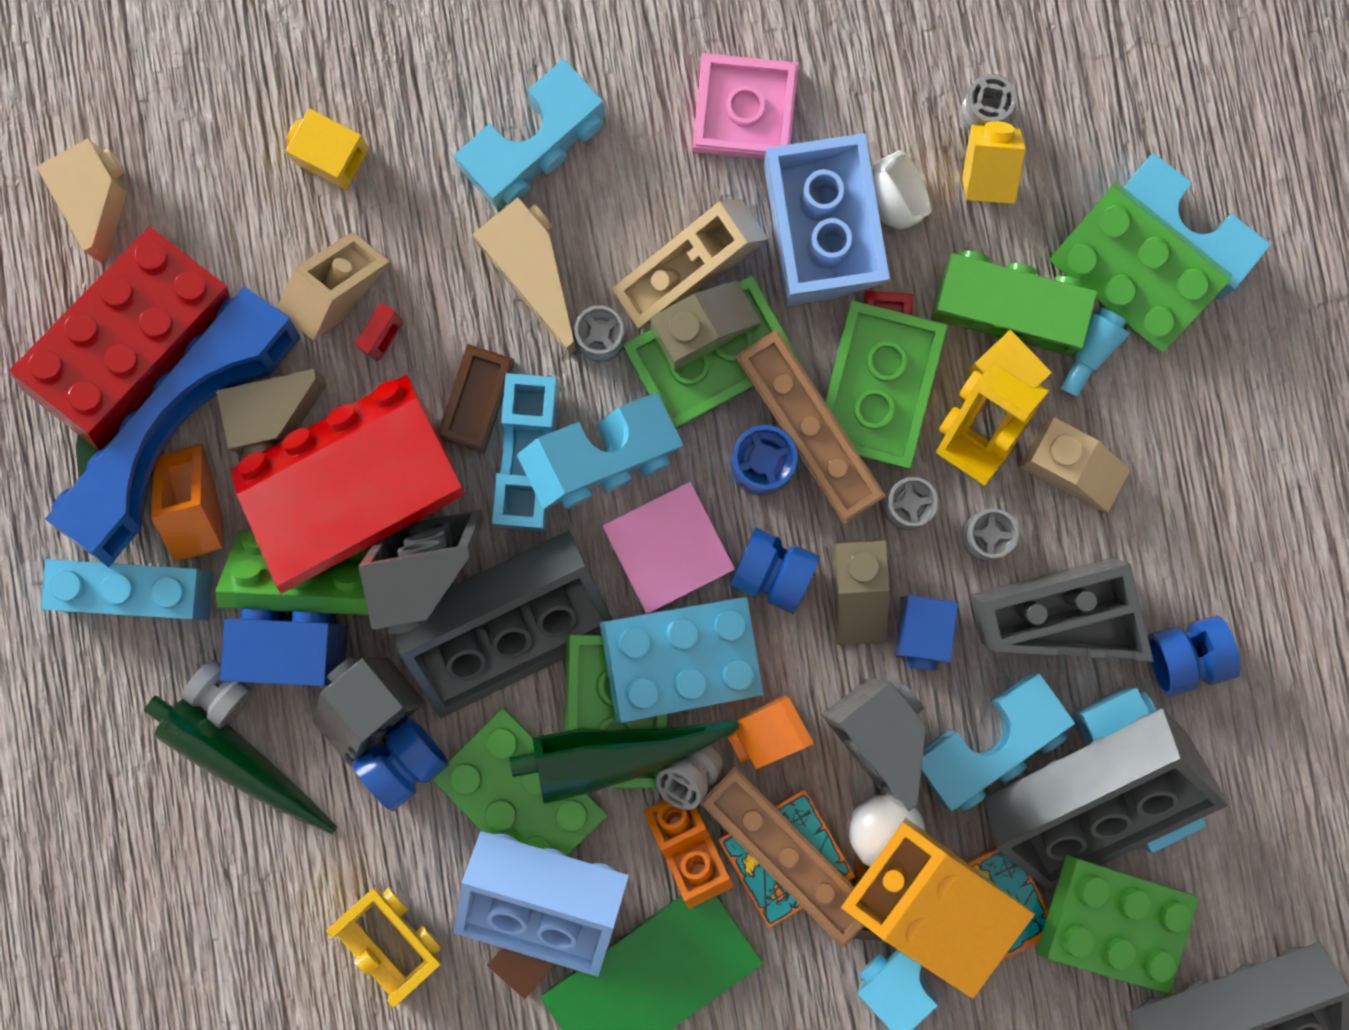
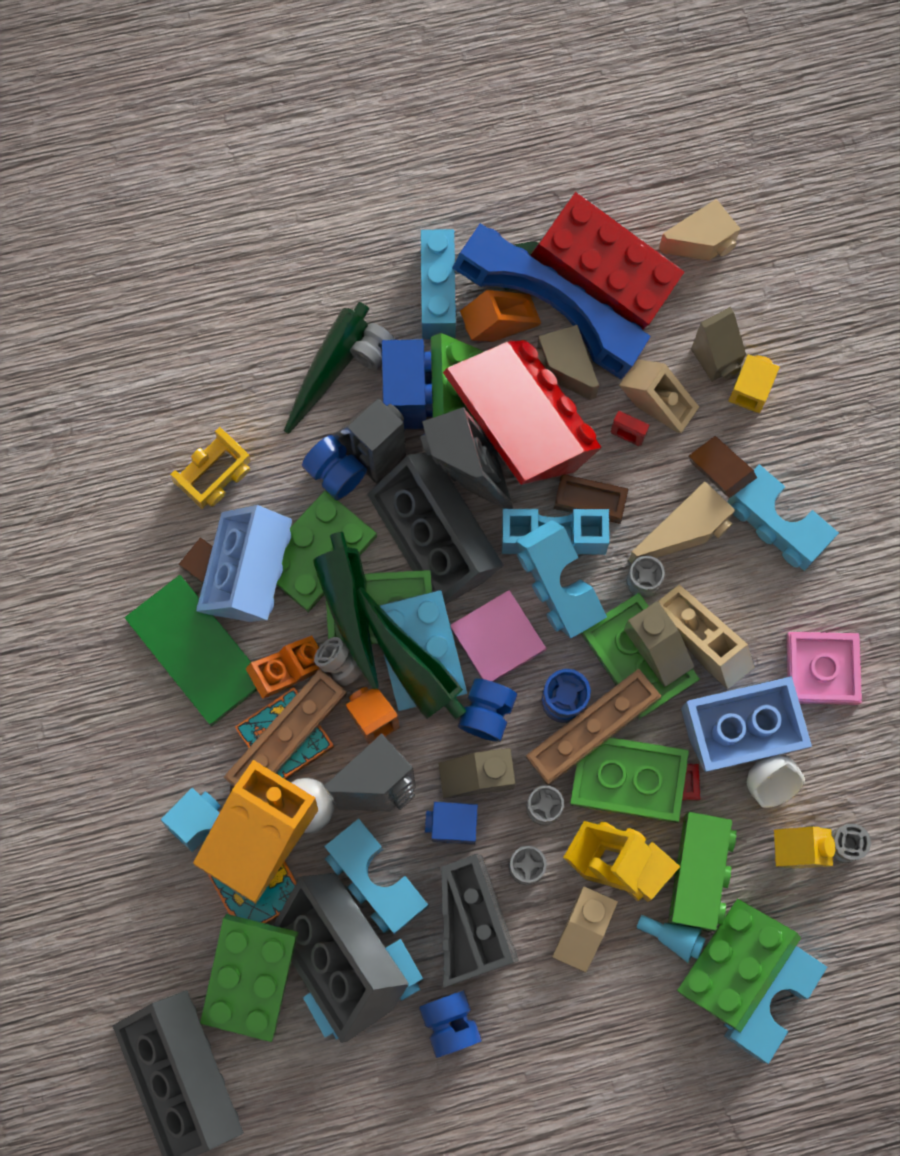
camera: 85 degrees right, 10 degrees down
(268, 189) = (719, 345): none -> dark tan slope
(450, 207) = (722, 466): none -> reddish brown tile
(714, 665) = (417, 670): none -> dark green piece

